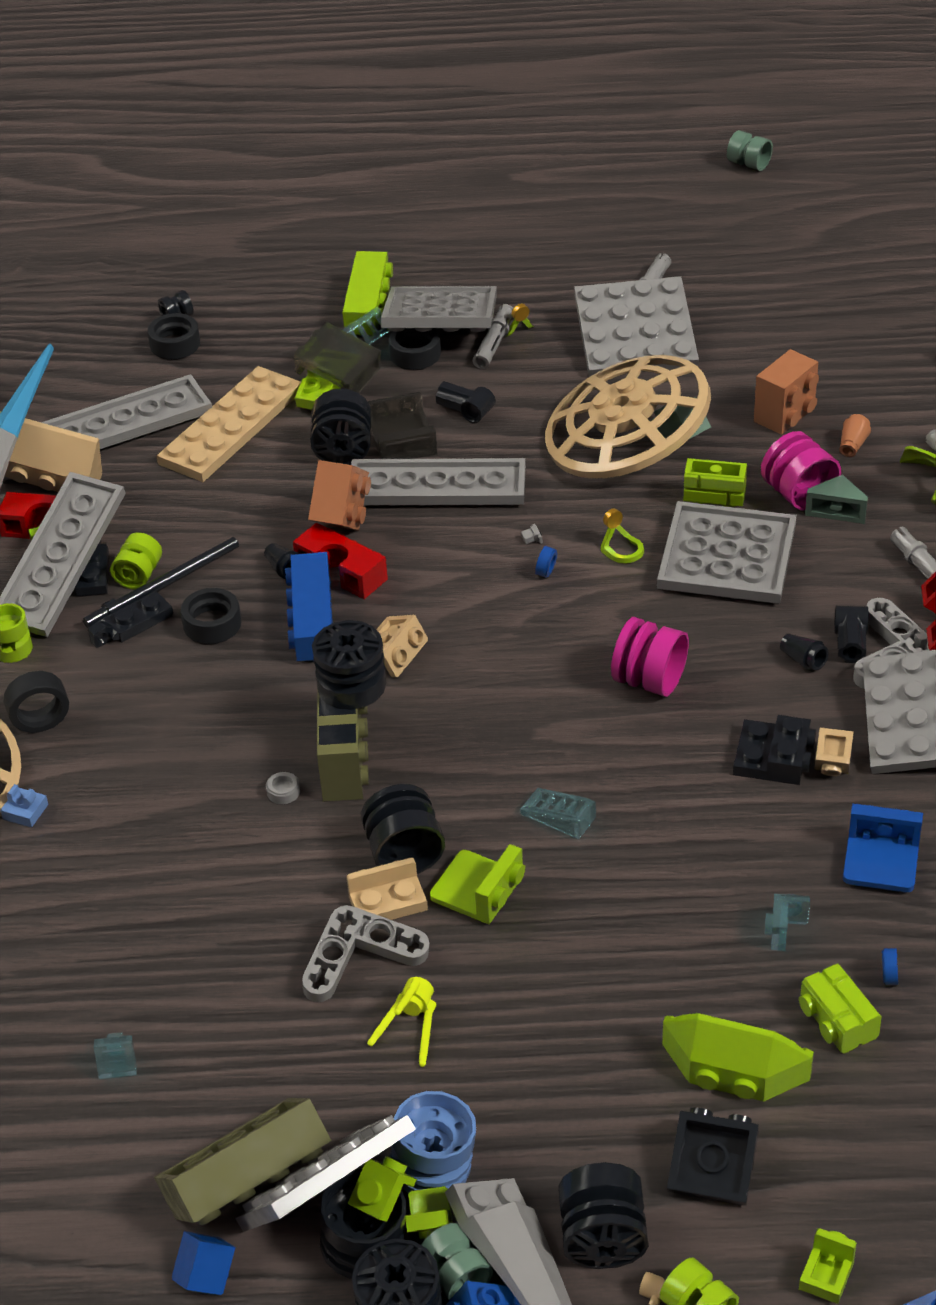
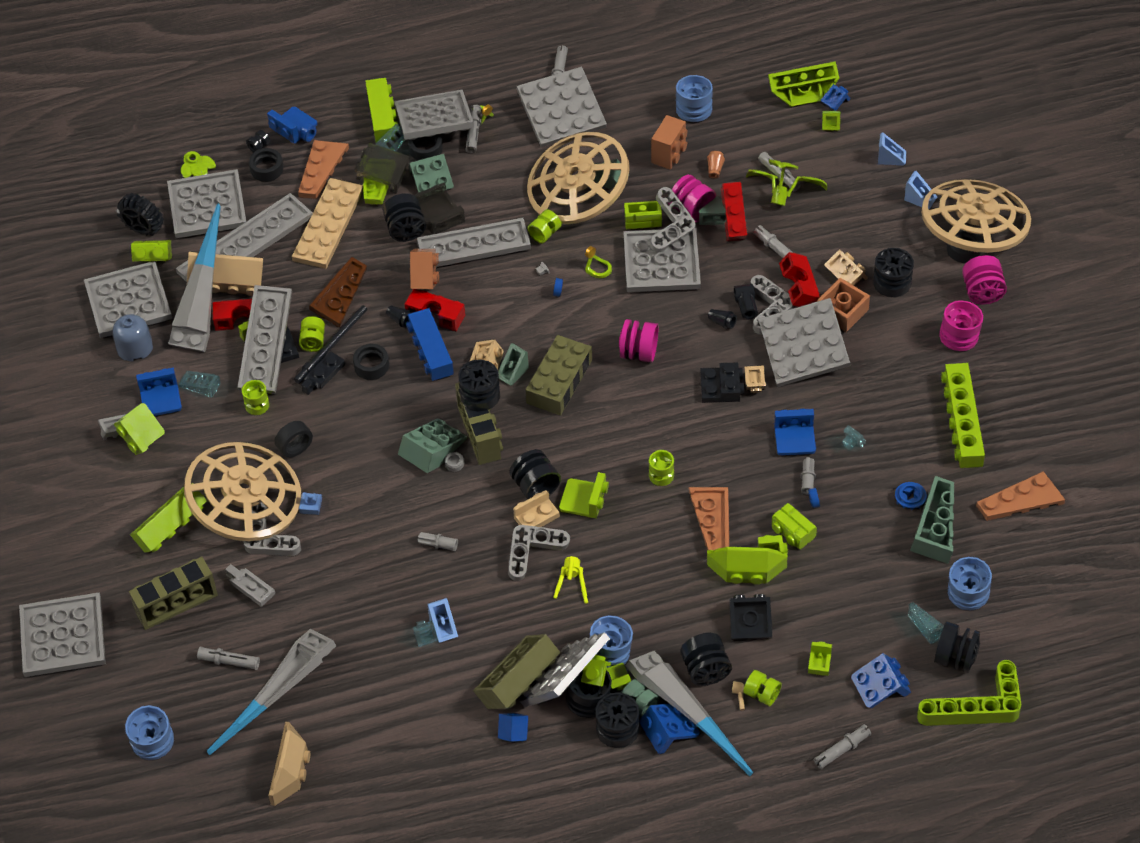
camera: 15 degrees left, 10 degrees up
(76, 324) = (196, 167): none -> lime plate
(79, 373) = (196, 198): none -> light grey plate
(153, 1039) = (442, 619): none -> light blue slope
(200, 518) = (338, 294): none -> reddish brown wing
(204, 907) = (438, 541): none -> light grey axle
(232, 295) = (290, 123): none -> blue bracket
(251, 306) = (308, 132): none -> blue tile
(251, 350) = (320, 166): none -> nougat wing
(251, 751) = (430, 444): none -> sand green slope
(408, 376) = (431, 172): none -> sand green bracket
(433, 659) = (513, 365): none -> sand green slope
(470, 403) = (476, 182): black piece -> none
(501, 687) = (559, 375): none -> olive brick
(554, 474) = (544, 226): none -> lime wheel
(575, 819) = (620, 439): clear light blue slope -> none
(626, 861) = (661, 467): none -> lime wheel
(696, 957) = (712, 514): none -> nougat wing
(766, 496) = (678, 221): none -> light grey beam
(786, 909) = (752, 478): clear light blue bracket -> none
(792, 1027) = (772, 542): none -> lime bracket
(843, 341) = (694, 98): none -> medium blue wheel
(864, 497) = (734, 209): none -> red arch
(889, 925) = (807, 475): none -> light grey axle

